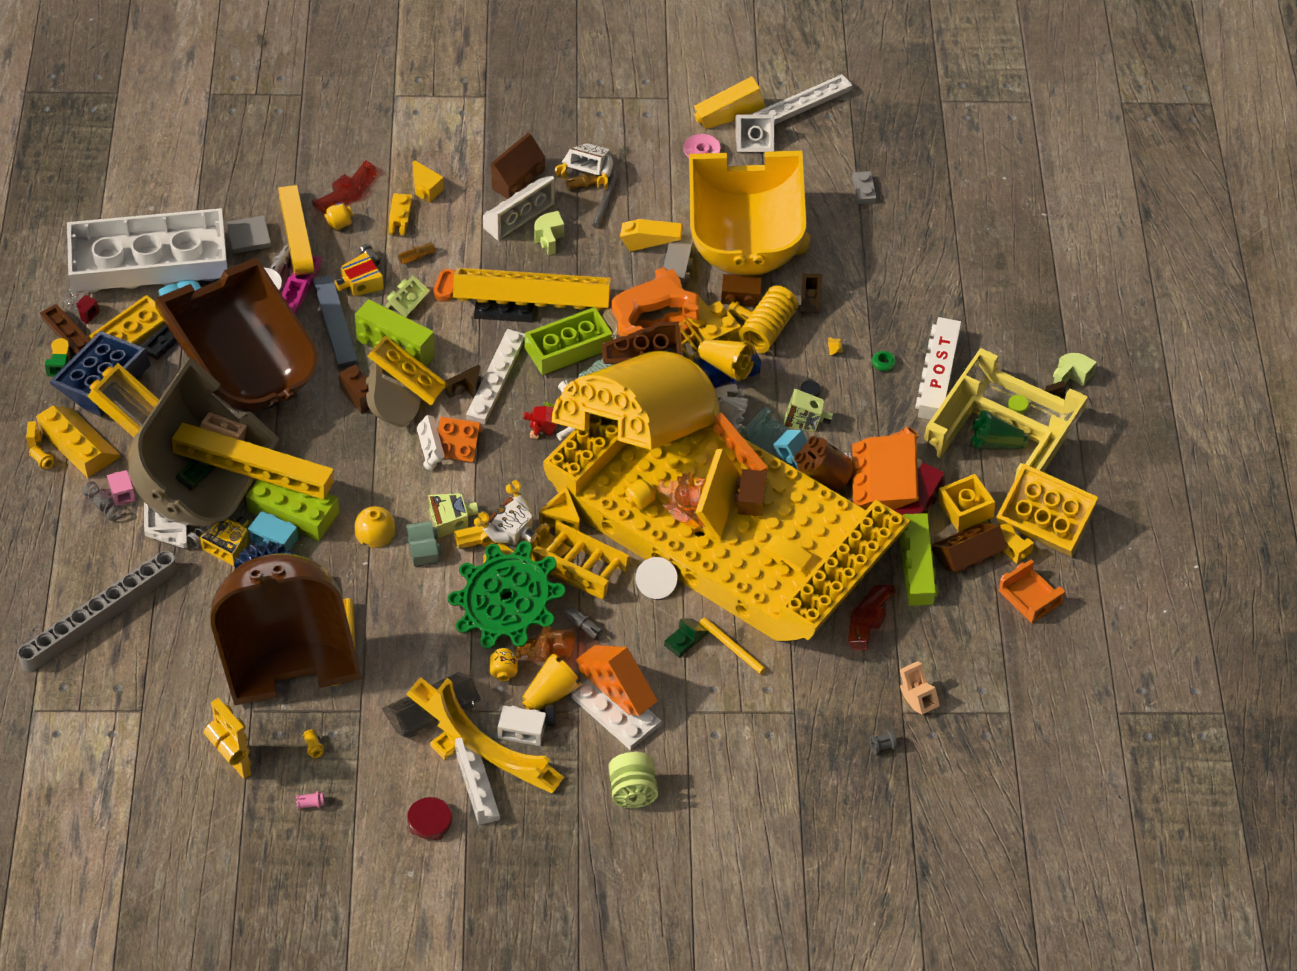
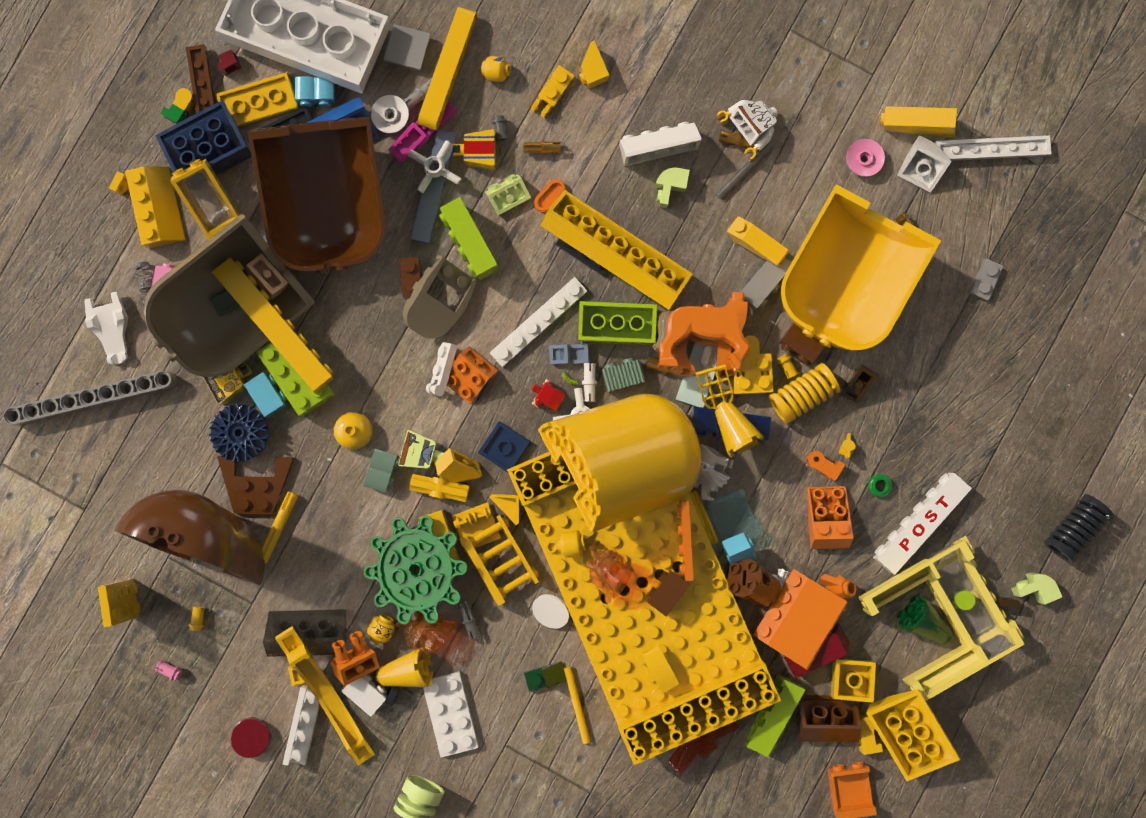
camera: 30 degrees right, 35 degrees up
(44, 460) = (118, 210): yellow pin -> none
(84, 548) = (109, 325): none -> white animal
(328, 299) = (427, 162): none -> white bar
(348, 189) = (522, 37): clear red plate -> none
(407, 370) = (457, 288): yellow tile -> none
(467, 380) = (512, 319): dark brown slope -> none
(487, 500) = (457, 467): none -> yellow slope
(496, 694) = (355, 663): none -> orange brick
(510, 521) = (456, 500): torso -> none
(517, 166) = (683, 97): reddish brown slope -> none
(531, 477) = (504, 447): none -> dark blue tile
(538, 388) = (569, 354): none -> sand blue slope
(618, 677) = (454, 704): orange brick -> none
(659, 337) = (676, 384): reddish brown wedge -> none
(718, 494) = (635, 584): yellow tile -> none
(805, 412) = (775, 511): yellowish green torso -> none
(811, 387) = (797, 482): black tile -> none
(823, 366) = (825, 467): none -> orange leg
(858, 401) = (829, 518): none -> orange slope
(1071, 311) = (1082, 529): none -> black piece

